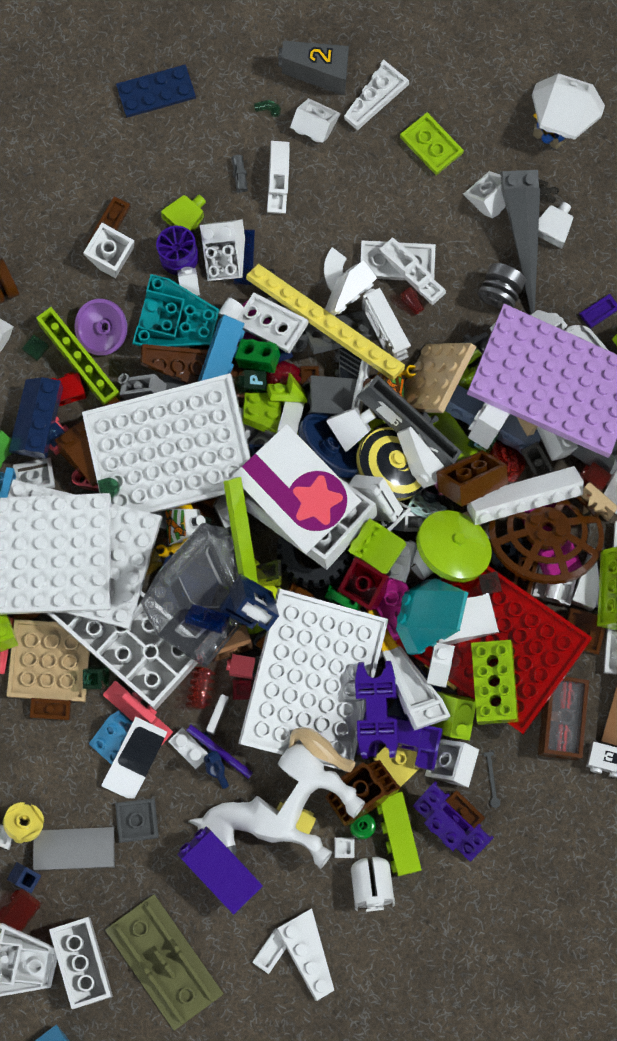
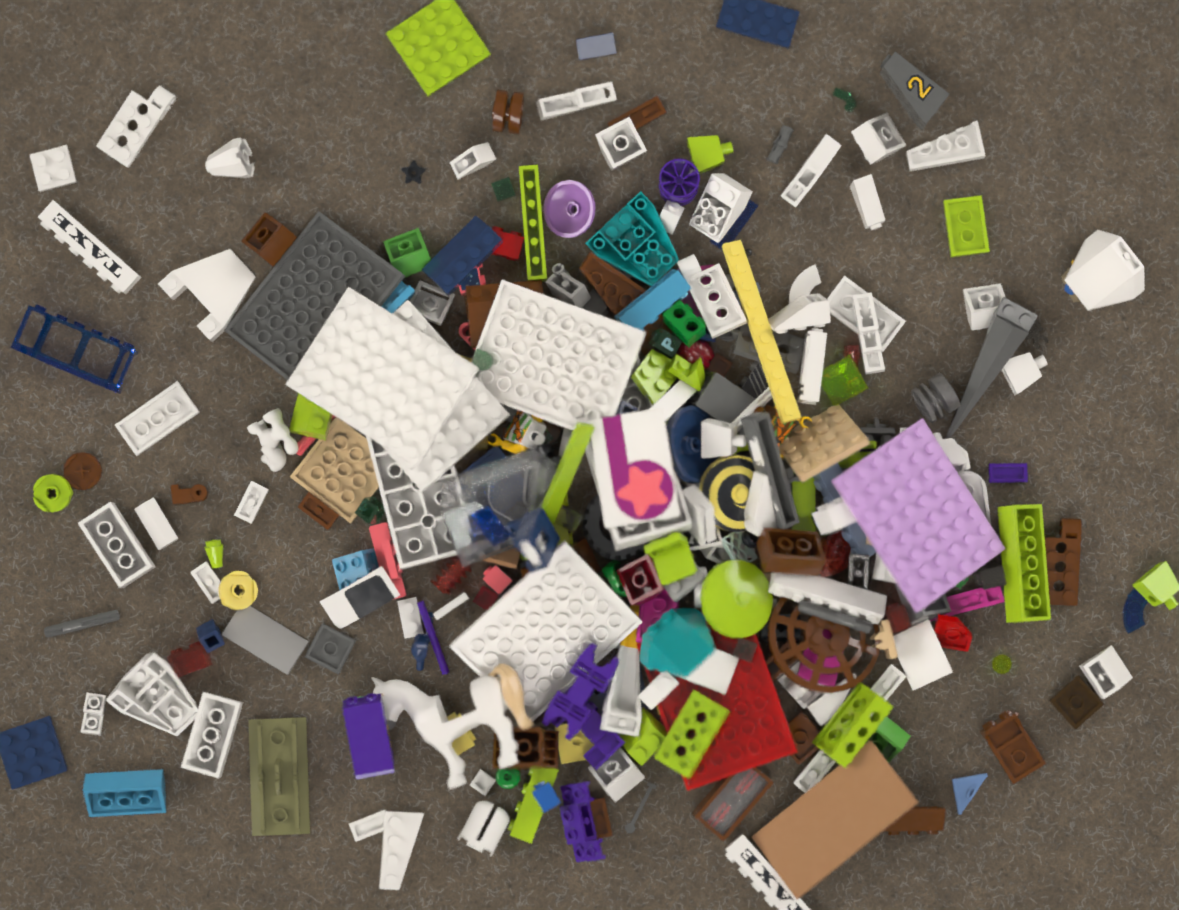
camera: 35 degrees right, 10 degrees up
(37, 189) = (596, 46): none -> slope
(53, 238) = (581, 99): none -> white slope
(340, 171) = (868, 202): none -> white slope
(406, 819) = (545, 796): none -> blue brick
(418, 322) = (842, 381): none -> clear neon green slope
(544, 508) = (834, 616): none -> dark grey axle

